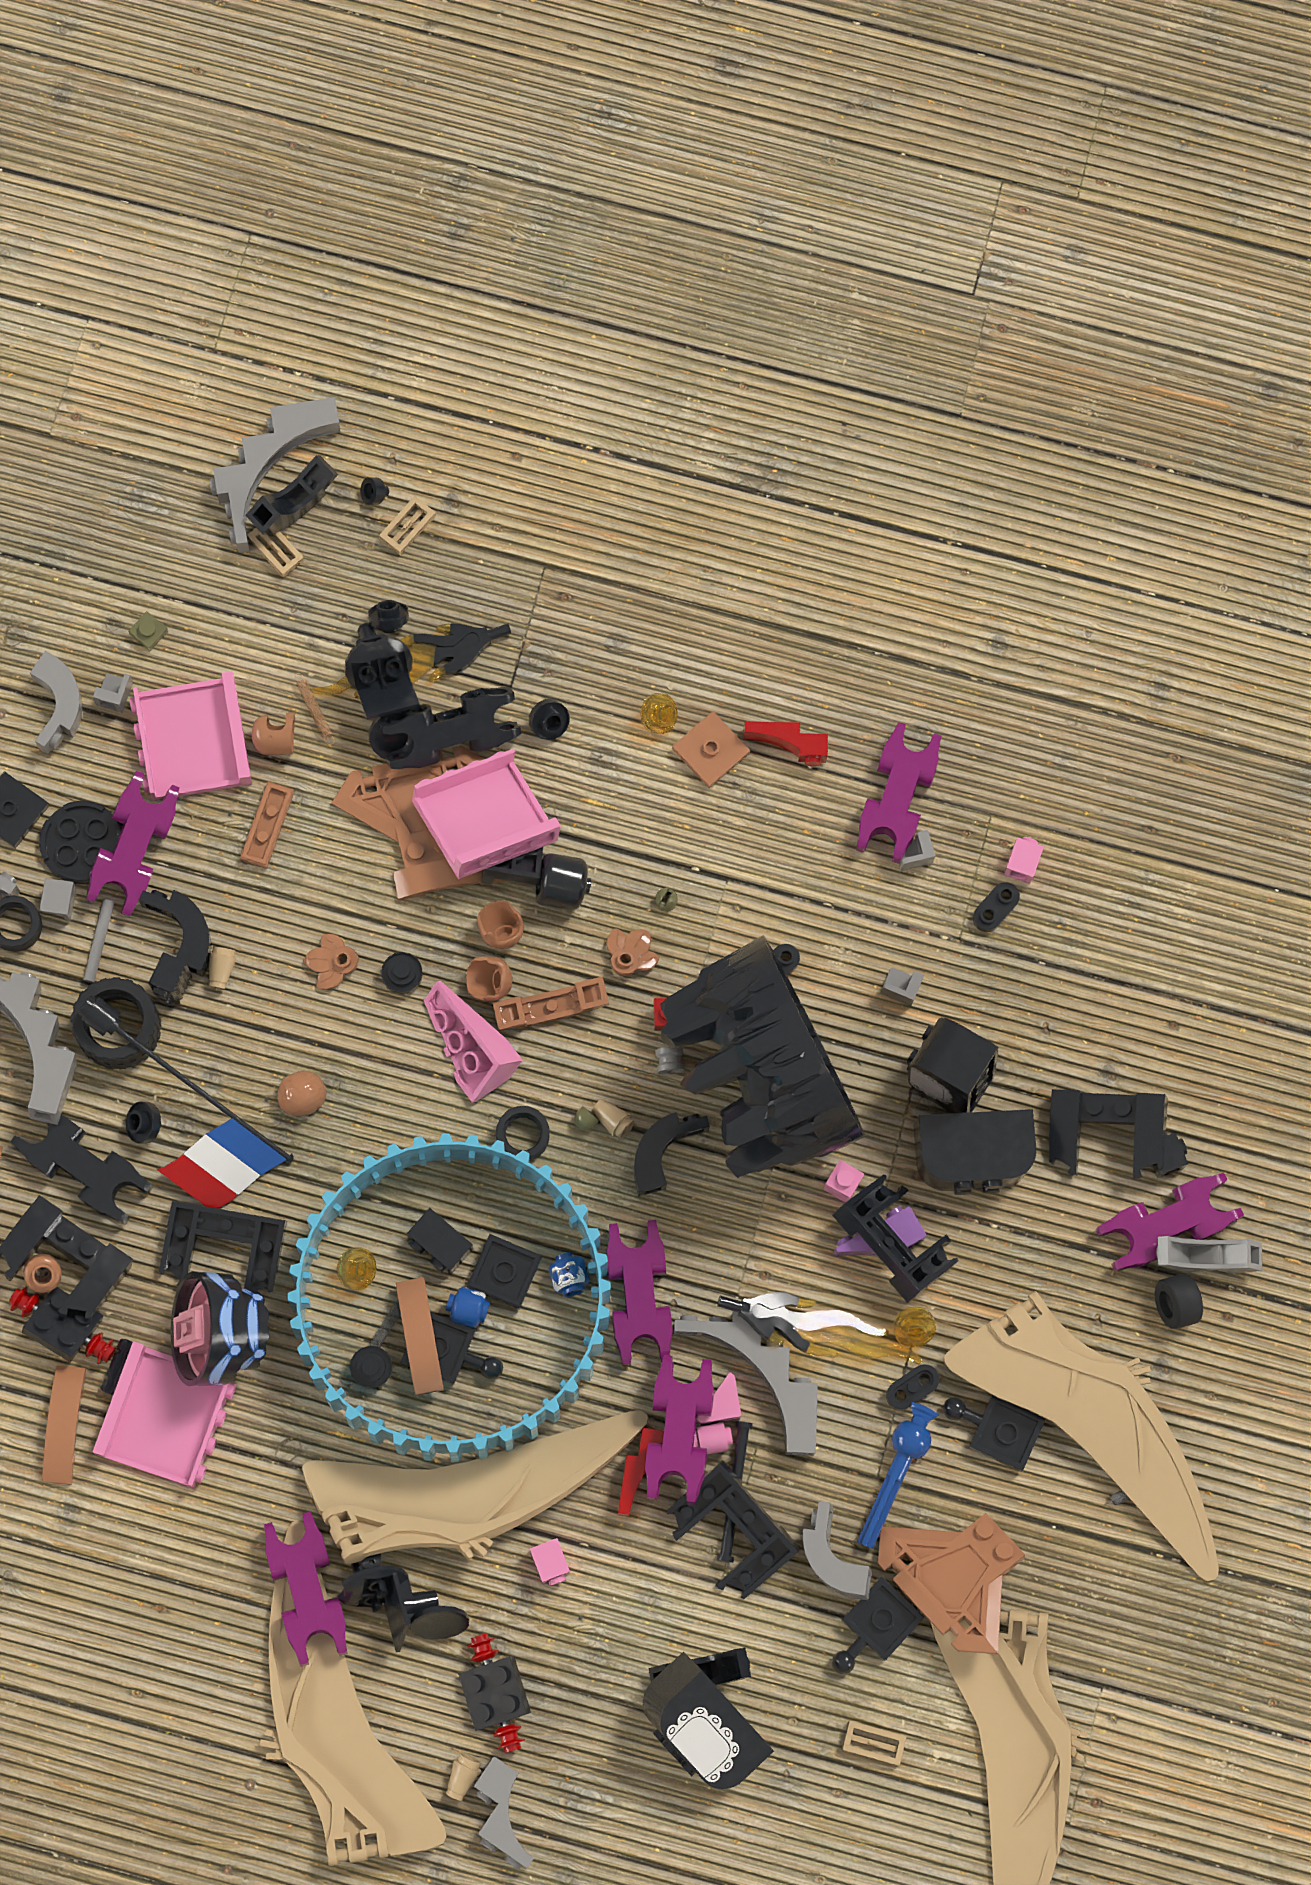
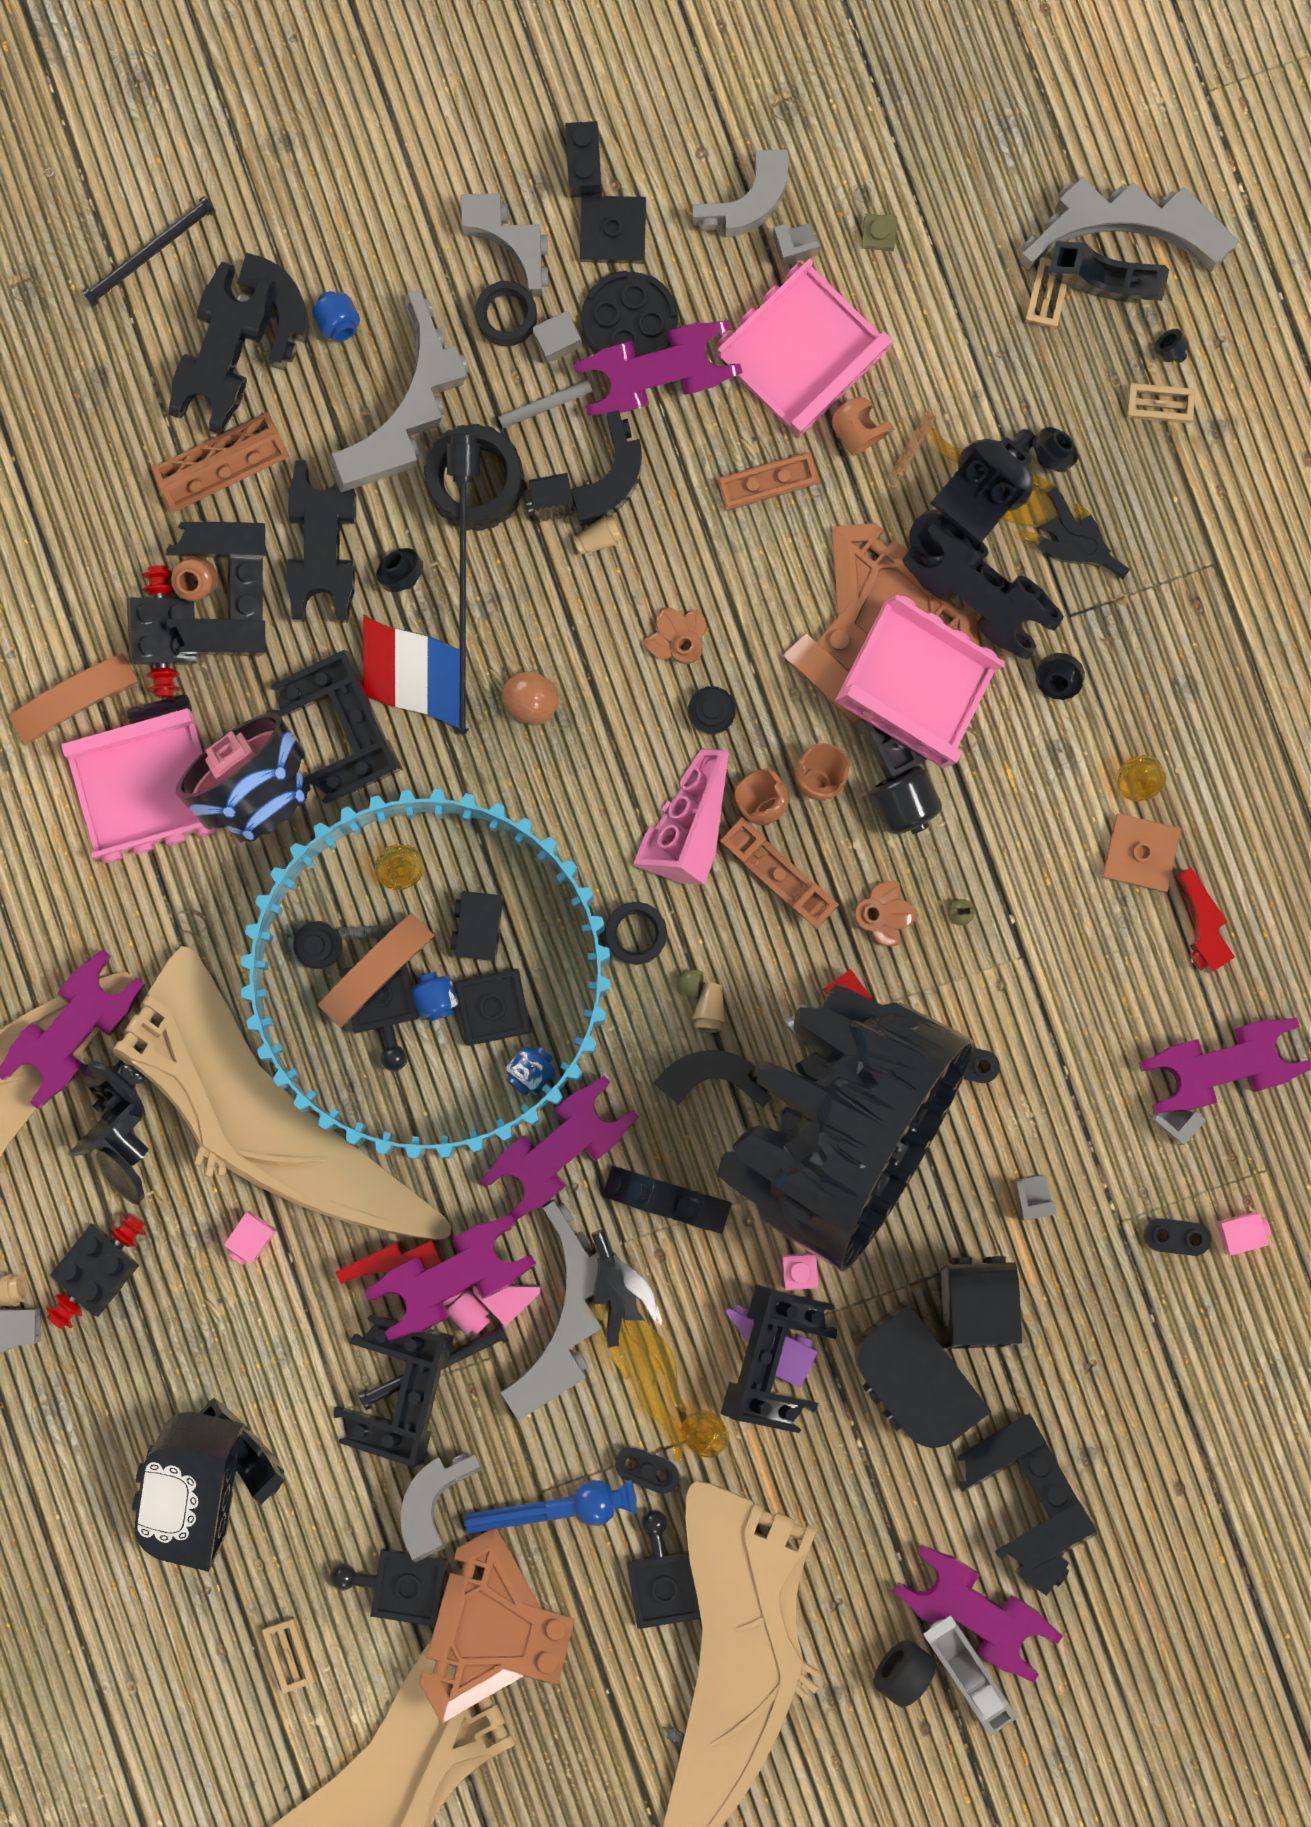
camera: 65 degrees right, 10 degrees up
(728, 1240) = (667, 1199): none -> black arch

